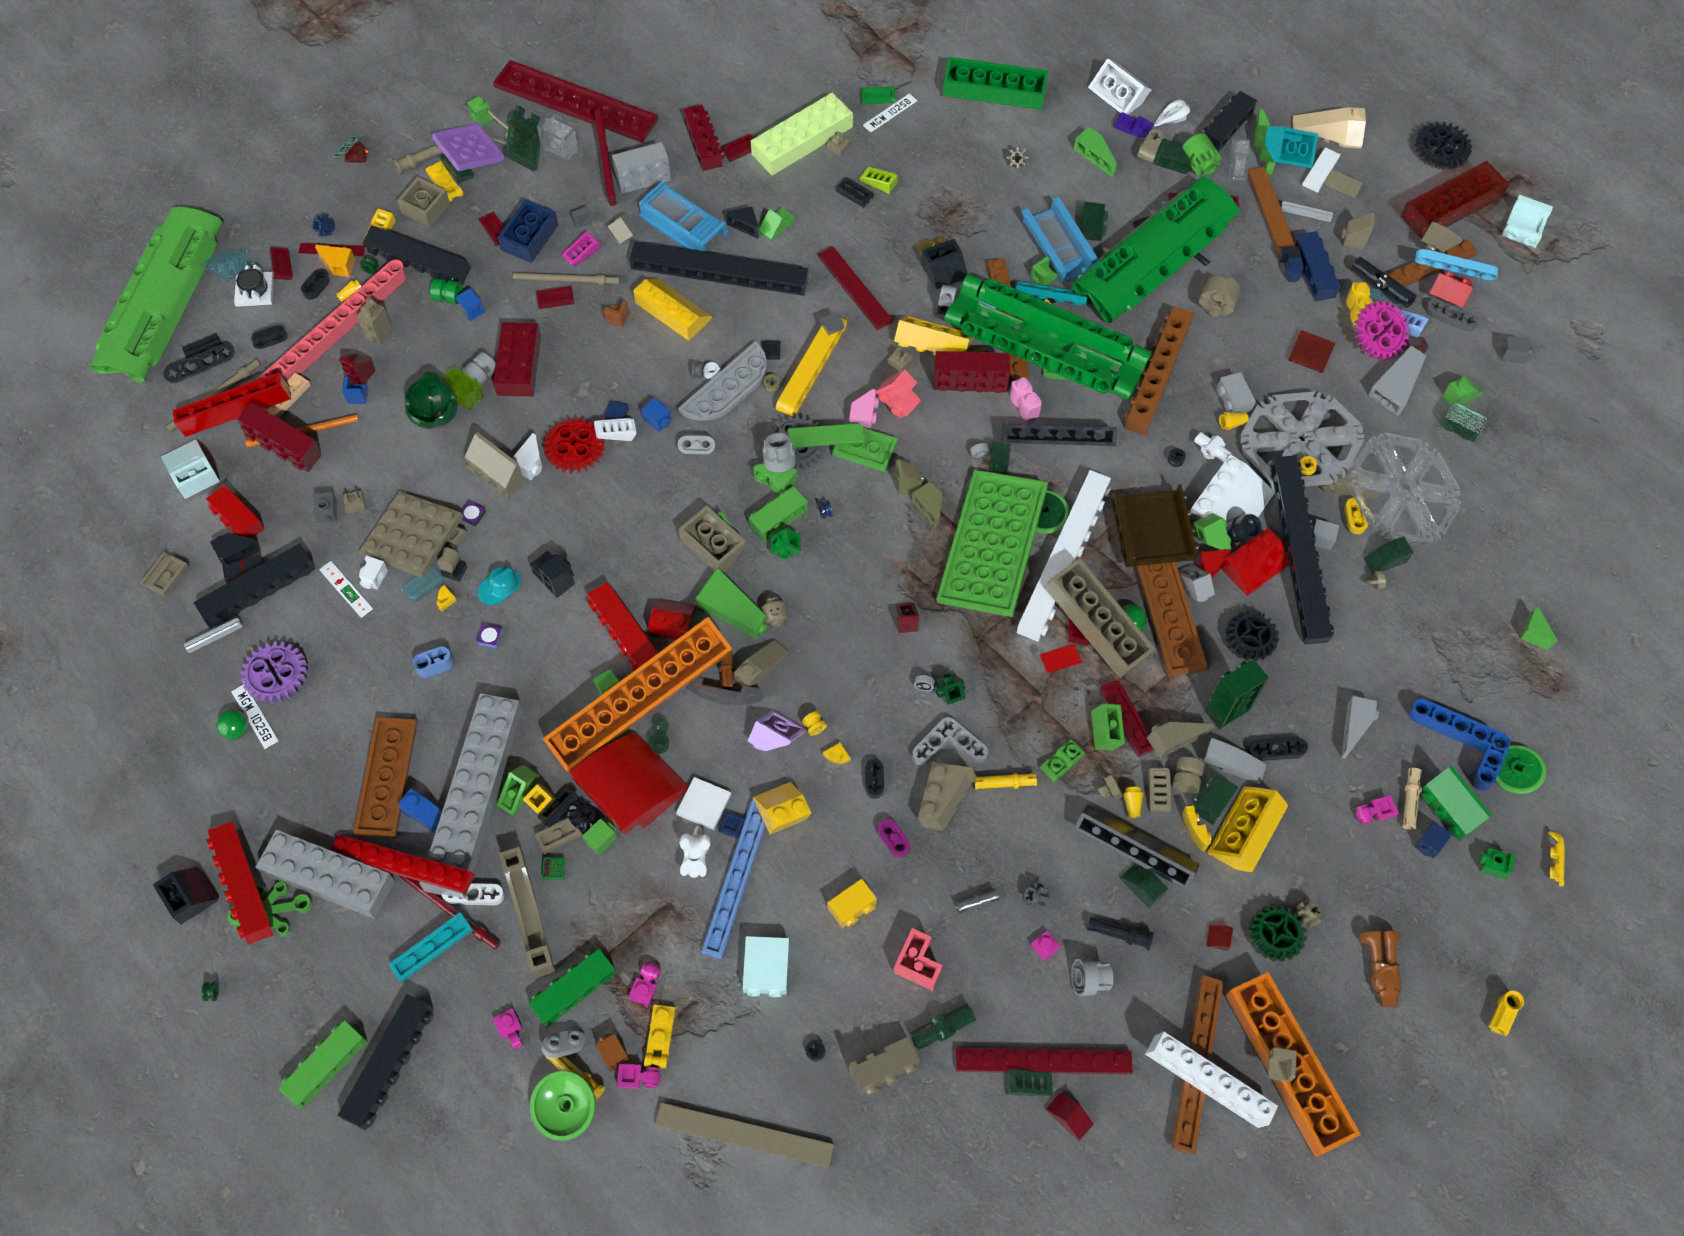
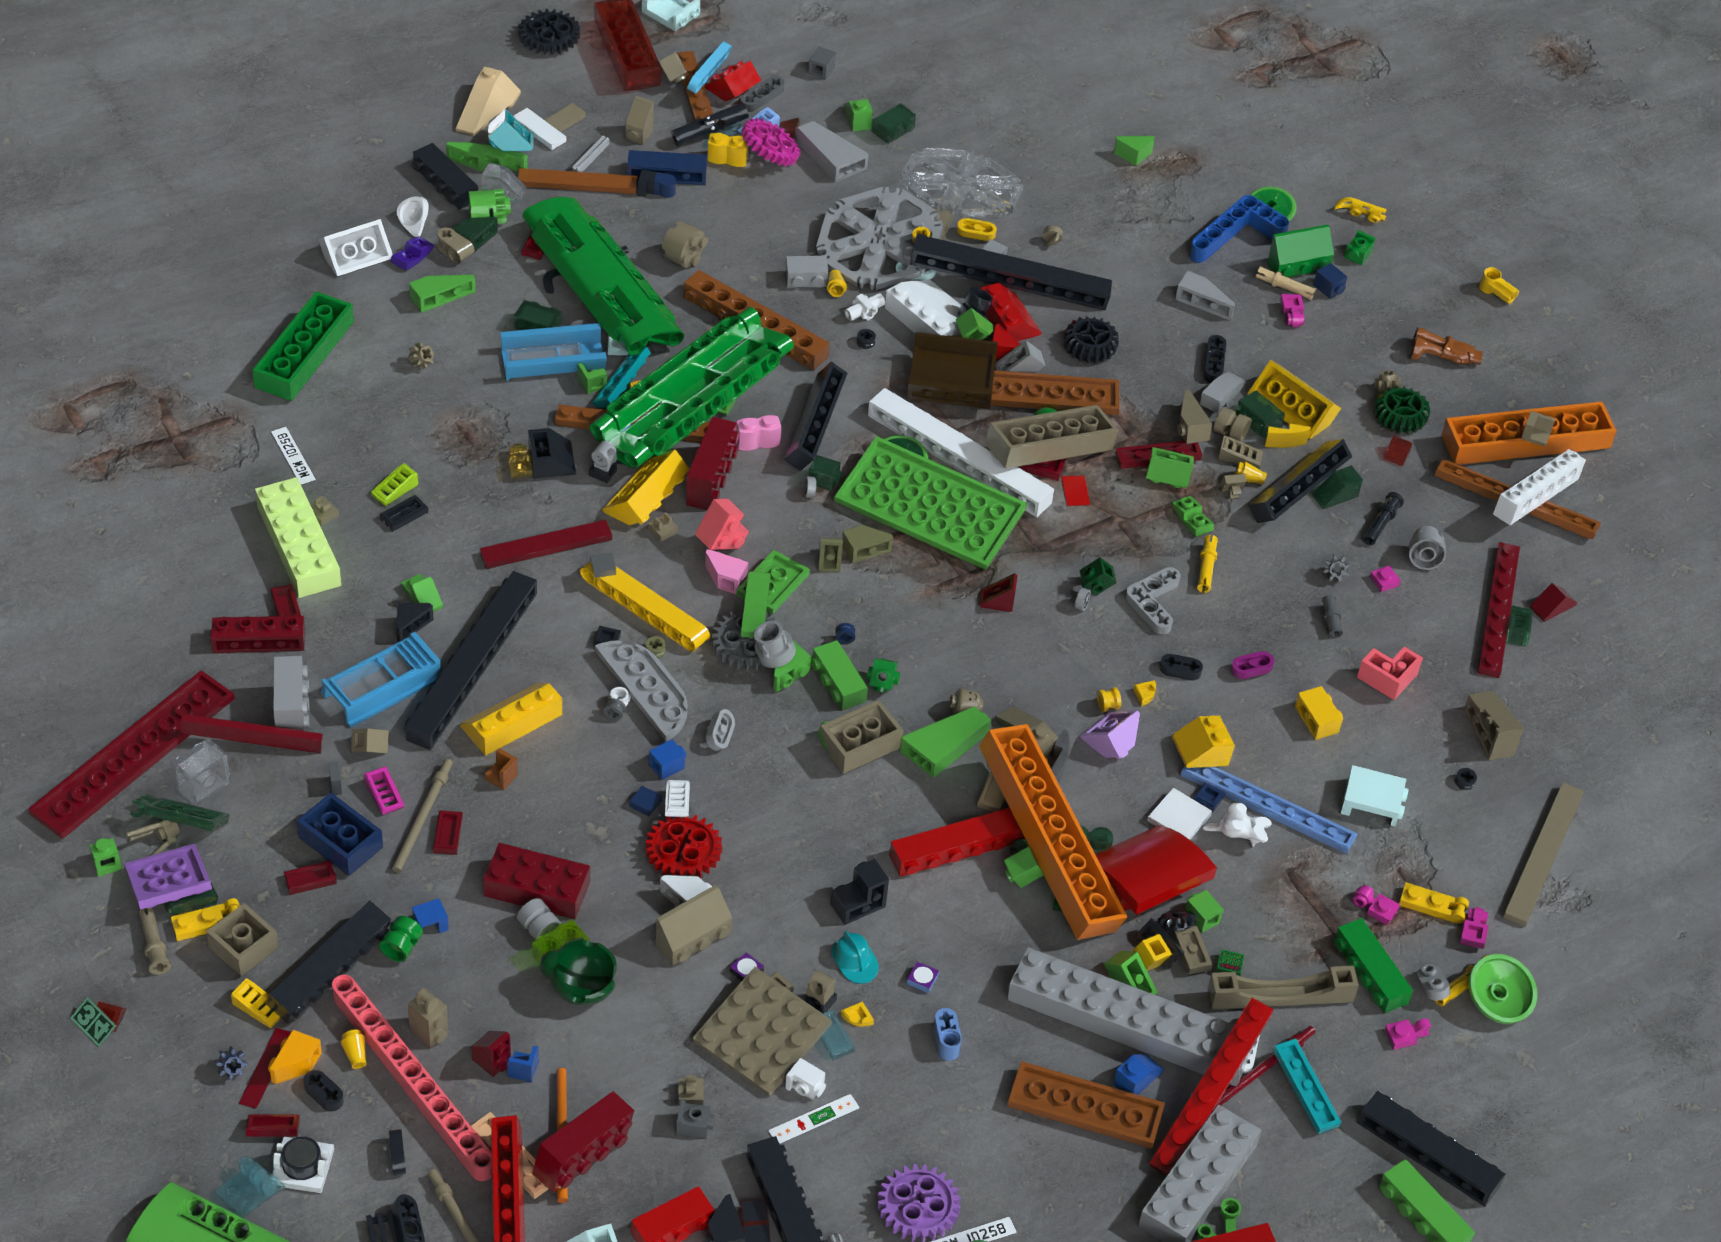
camera: 80 degrees left, 15 degrees down
(369, 265) = (320, 1021): dark green bush -> none
(611, 1051) = (1447, 943): dark orange brick -> none
(671, 619) = (949, 796): red slope -> none
(878, 95) = (262, 458): green tile -> none
(942, 794) = (1216, 609): dark tan wedge -> none
(942, 1027) = (1456, 670): clear green piece -> none
(1236, 693) = (1168, 354): dark green brick -> none
(1311, 351) = (770, 204): clear red tile -> none
(1389, 555) = (1029, 219): clear green slope -> none

